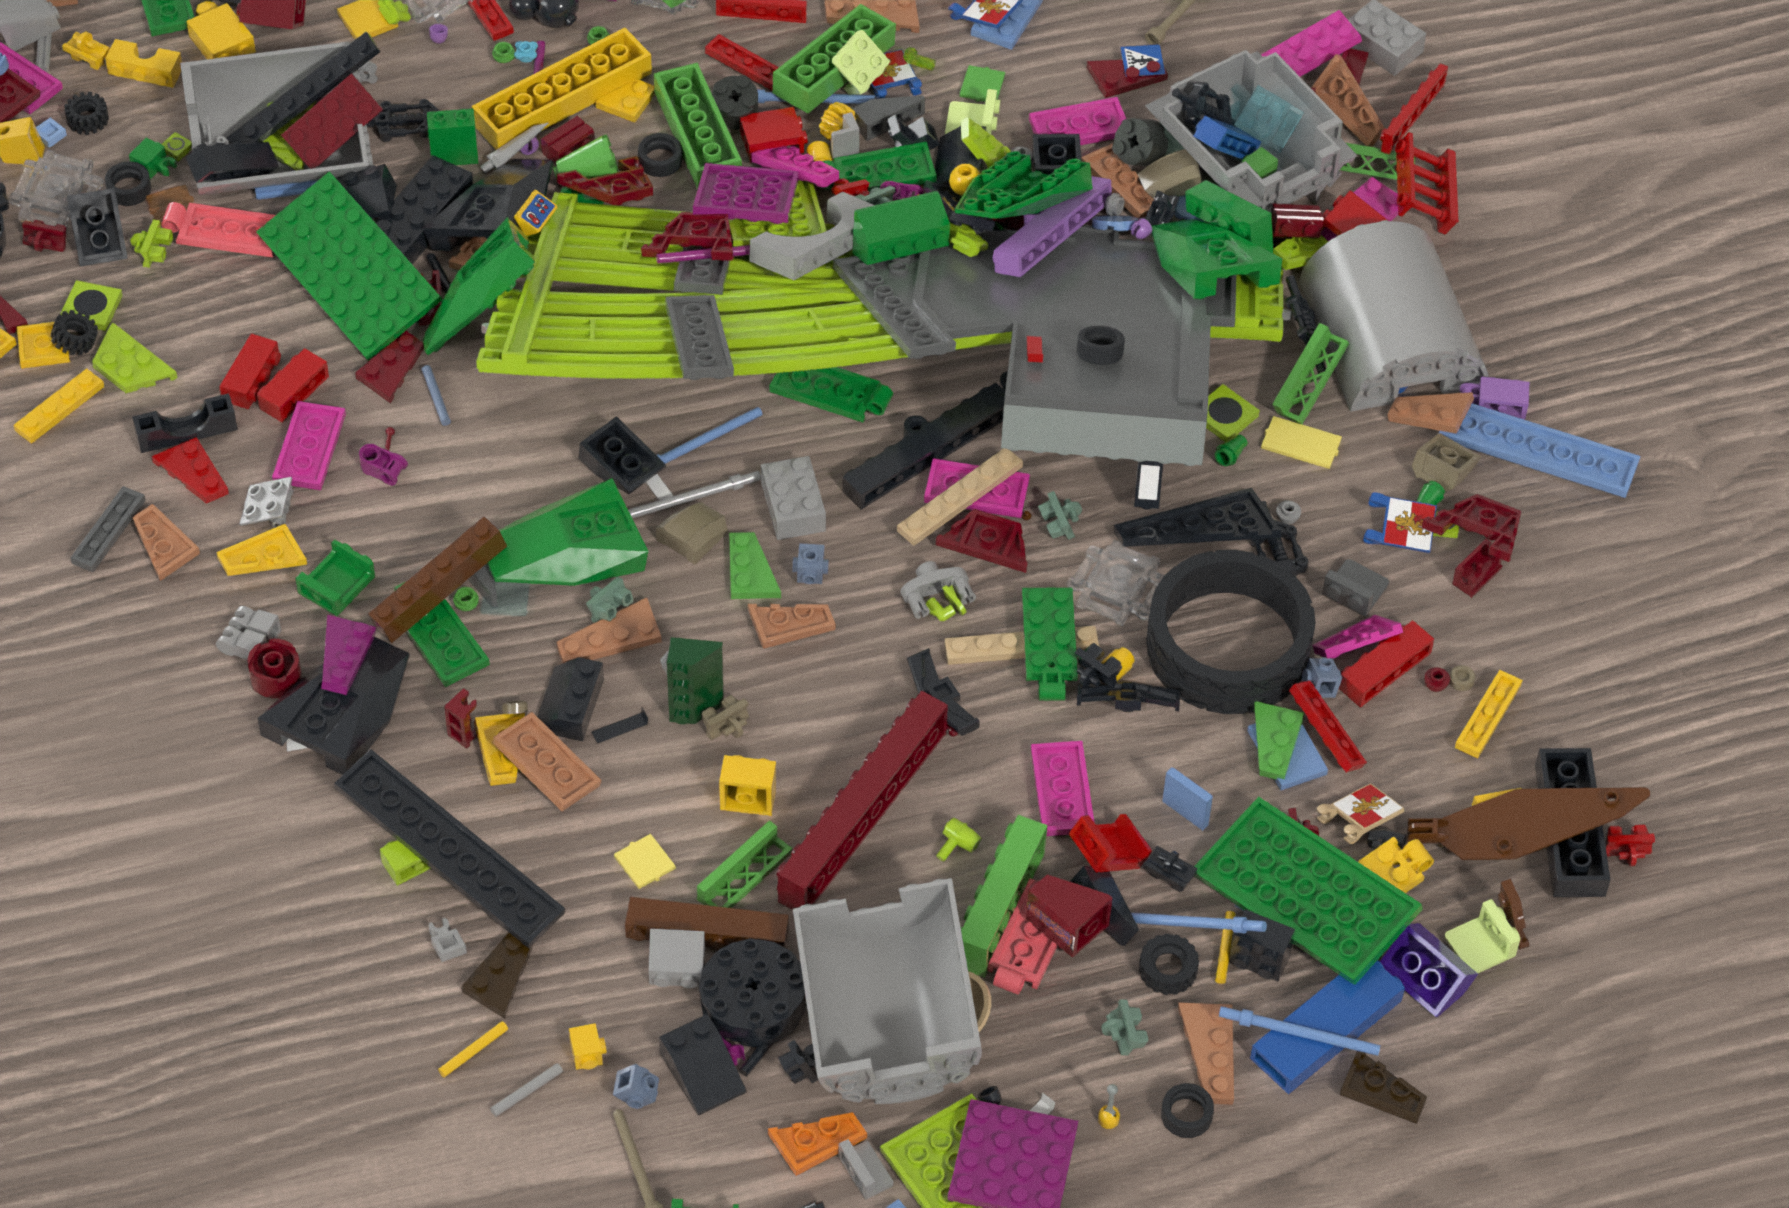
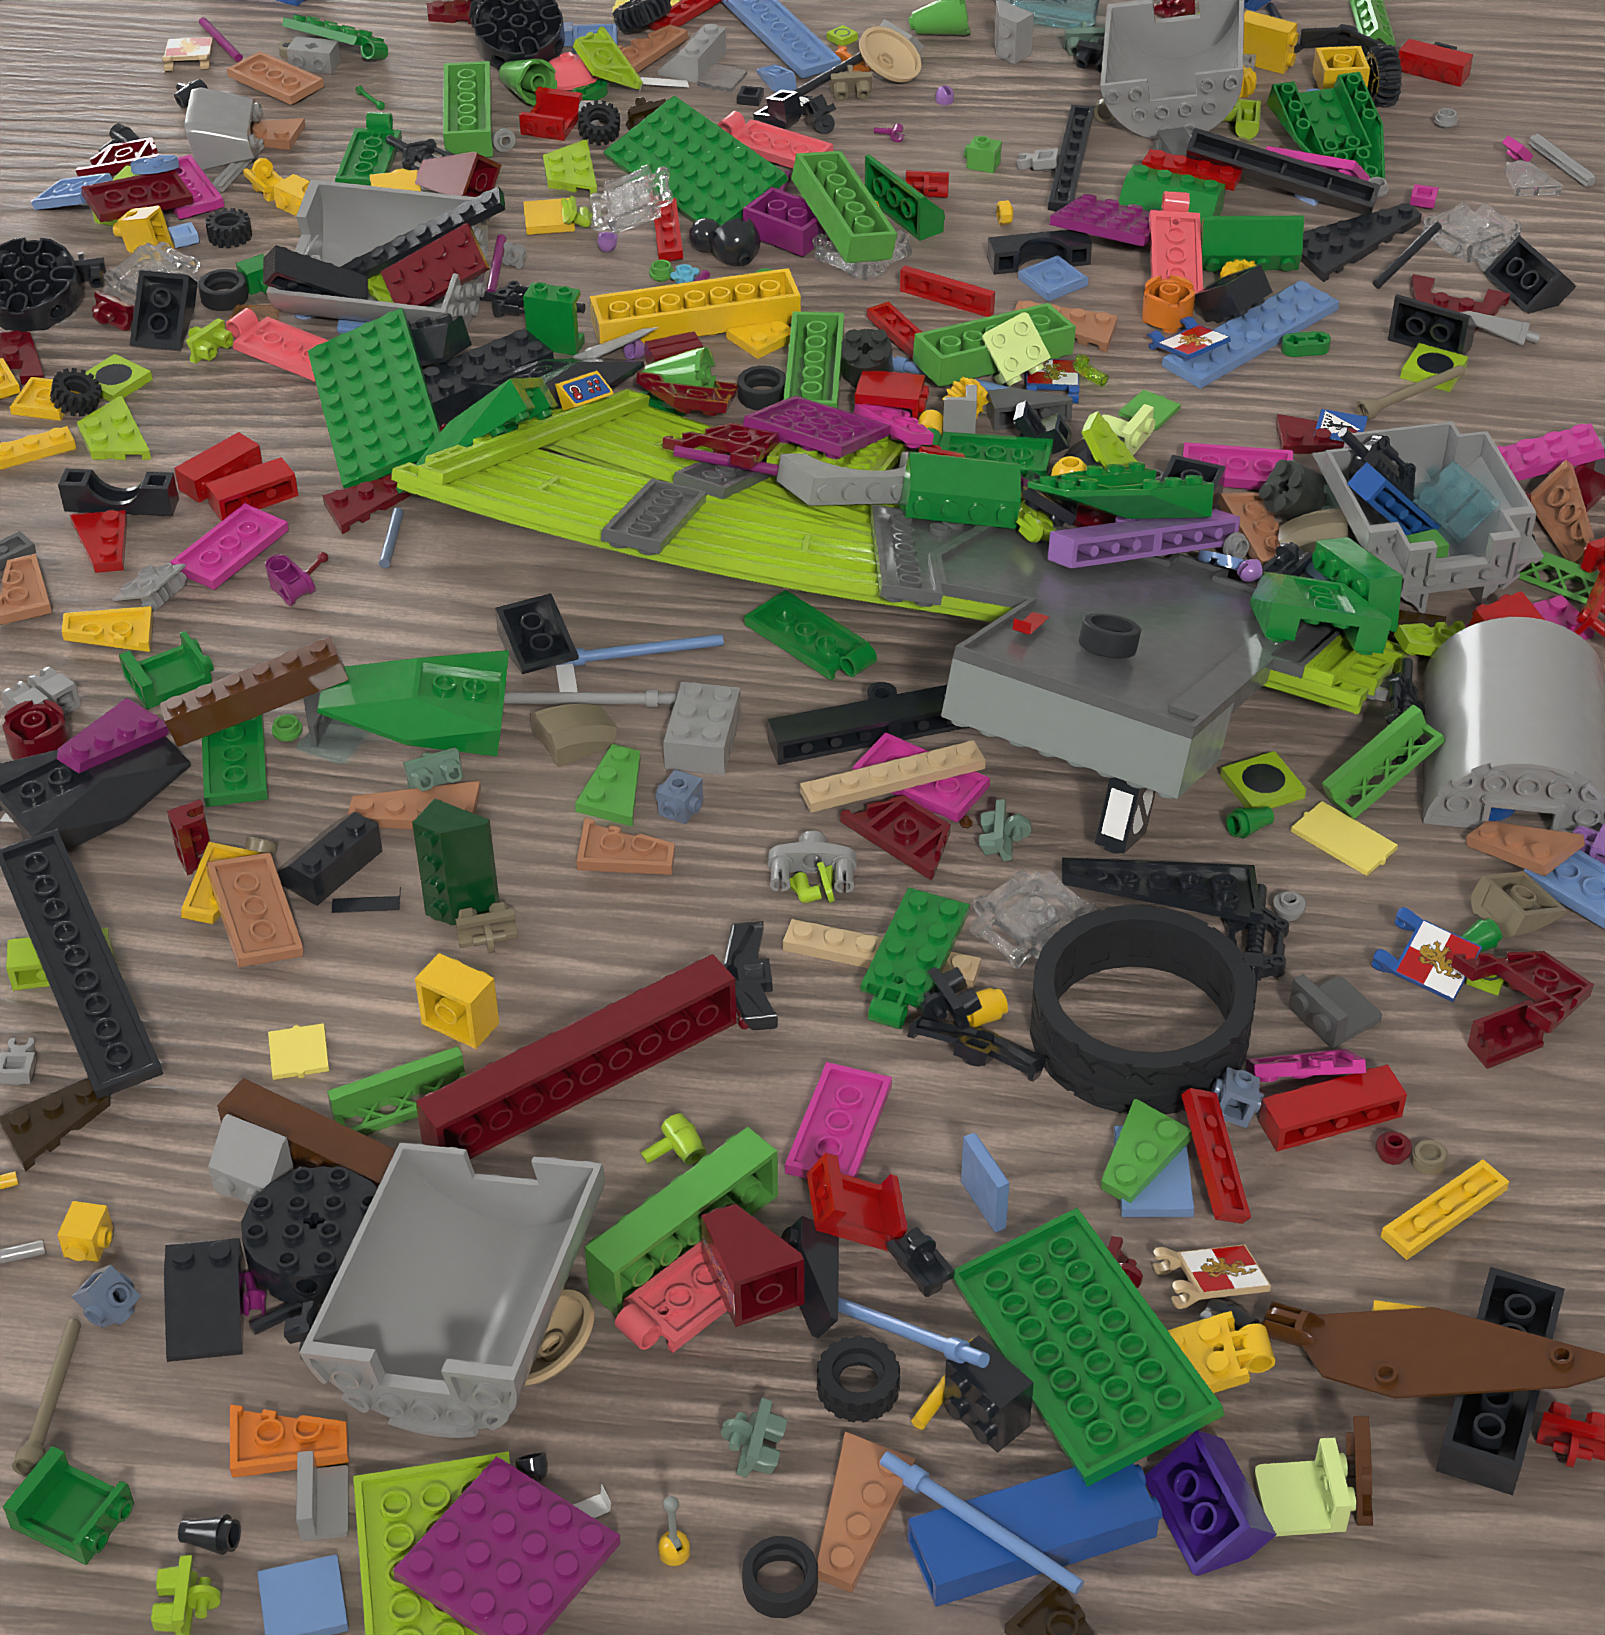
camera: 25 degrees right, 10 degrees down
(1296, 220) = (1441, 607): dark red brick -> none

